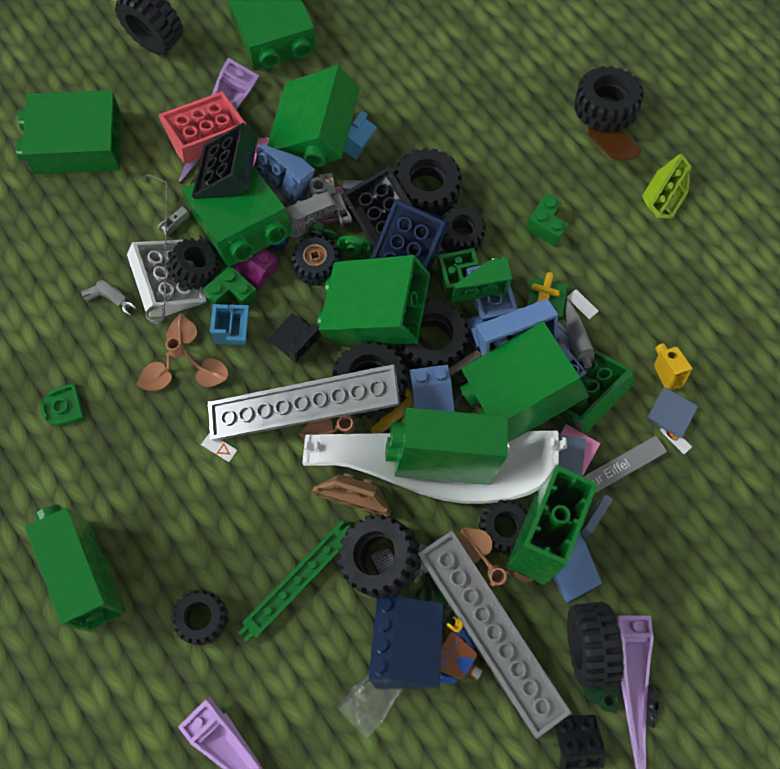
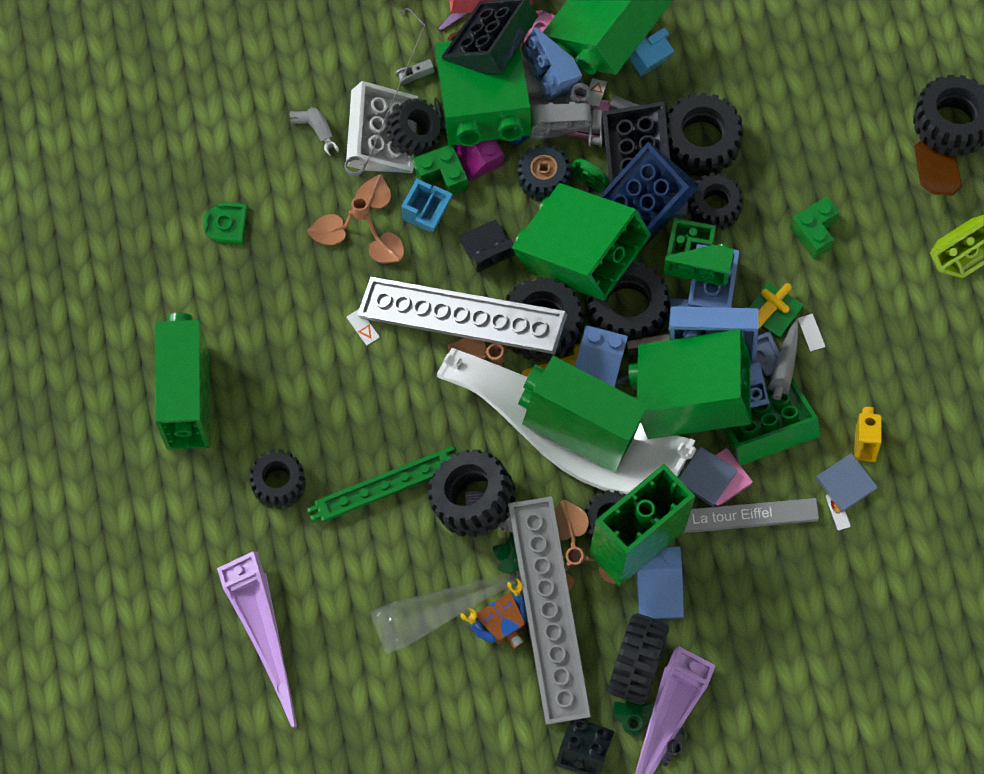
camera: 30 degrees right, 0 degrees up
(320, 229) = (561, 142): dark green plate -> none
(354, 493) = (474, 425): medium nougat wedge -> none
(406, 644) = (460, 581): dark blue slope -> none
(595, 516) = (704, 548): sand blue tile -> none

